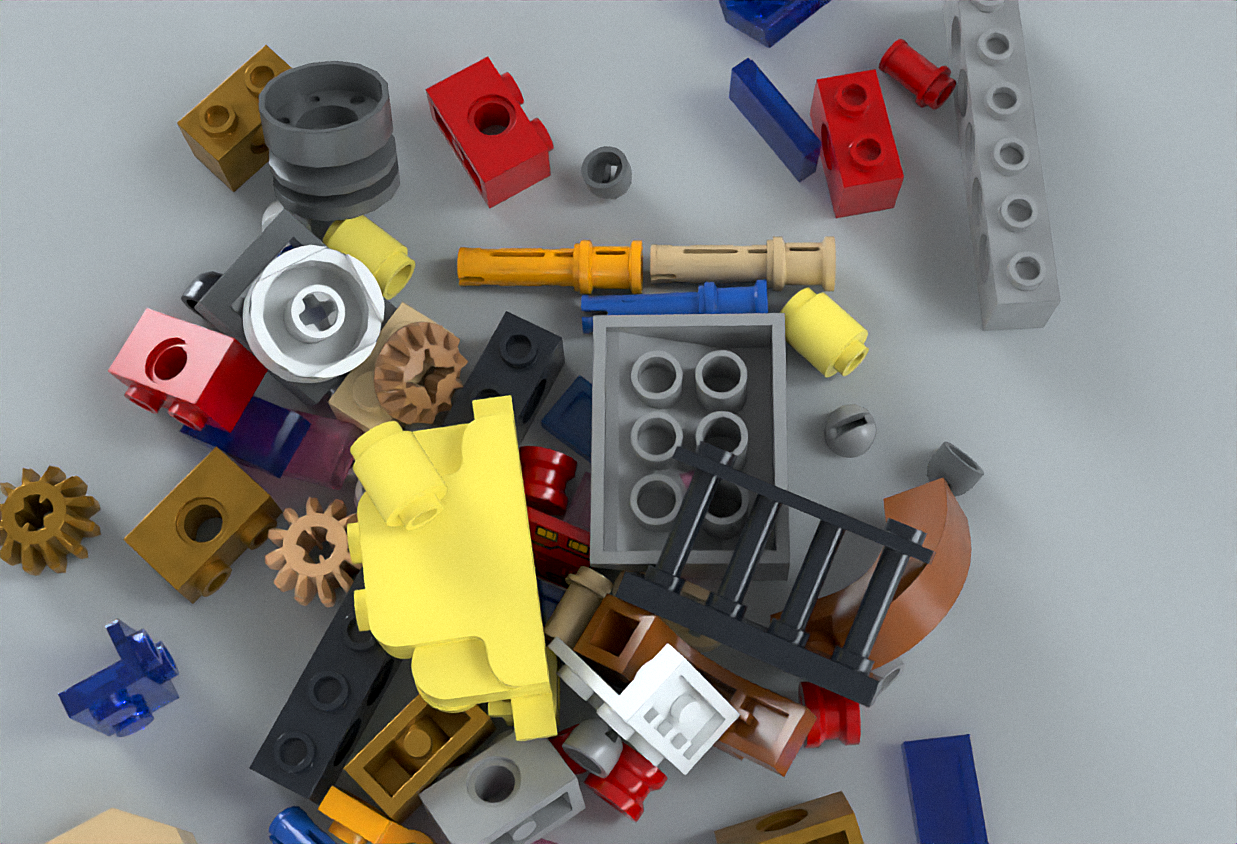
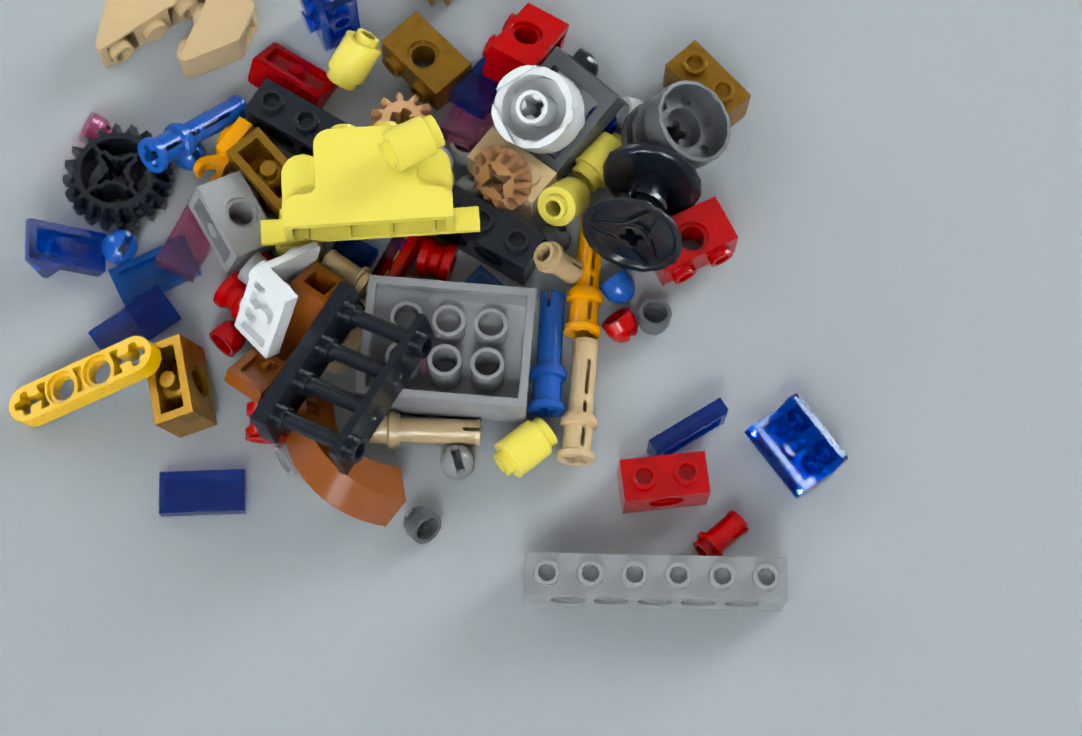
camera: 90 degrees right, 0 degrees up
(205, 636) = (353, 59): none -> light yellow brick
(226, 742) = (291, 73): none -> red slope
(420, 171) = (637, 223): none -> black piece
(443, 295) = (563, 201): none -> light yellow brick
(486, 318) = (556, 233): none -> dark grey hinge
(533, 305) = (552, 259): none -> tan pin
(563, 223) = (619, 287): none -> blue hinge
(616, 210) = (621, 325): none -> red hinge
(693, 794) = (227, 338): none -> red hinge
(812, 477) = (399, 430): none -> tan pin

